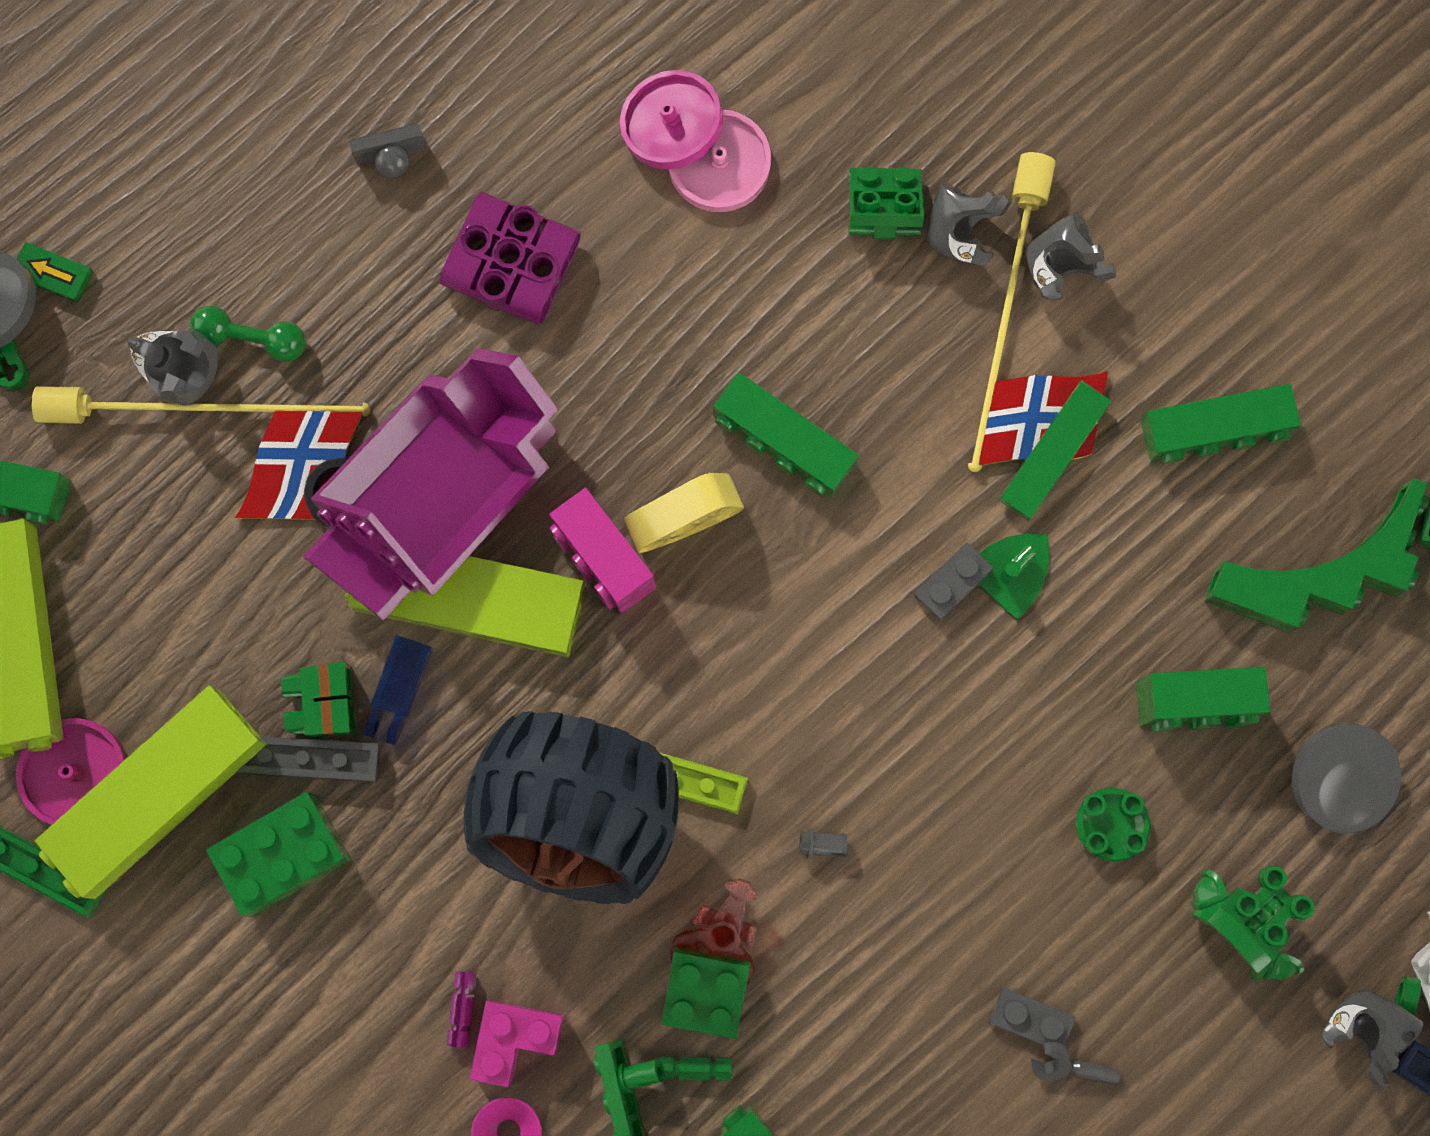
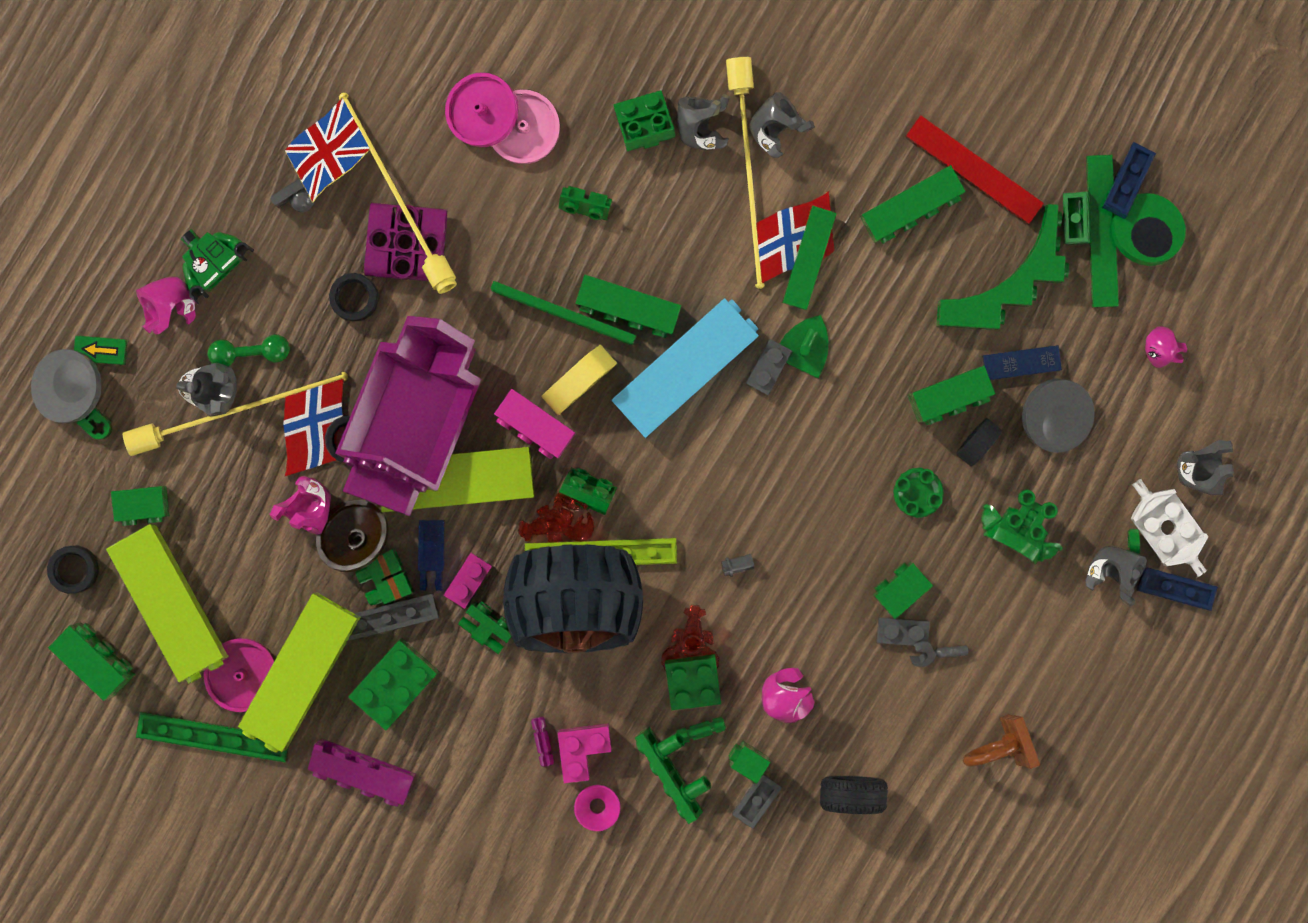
camera: 20 degrees left, 10 degrees up
(154, 219) = (159, 300): none -> dark pink piece
(186, 966) = (361, 772): none -> magenta wedge
(241, 199) = (210, 260): none -> green torso
(248, 568) = (307, 507): none -> dark pink piece
(295, 625) = (344, 528): none -> dark brown dish
(399, 286) = (350, 278): none -> black tyre
(435, 743) = (468, 580): none -> dark pink plate
(440, 815) = (488, 625): none -> green plate
(456, 107) = (333, 149): none -> flag
(592, 695) = (559, 521): none -> clear red animal
(644, 670) = (589, 490): none -> green plate
(692, 418) = (563, 313): none -> green tile
(756, 277) = (595, 207): none -> green hinge
(828, 1062) = (786, 702): none -> dark pink piece
(837, 543) = (686, 367): none -> medium azure brick
(1050, 956) = (902, 589): none -> green brick
(1223, 778) = (979, 442): none -> black tyre
(1317, 689) = (1022, 362): none -> dark blue tile
(1319, 406) = (974, 169): none -> red tile

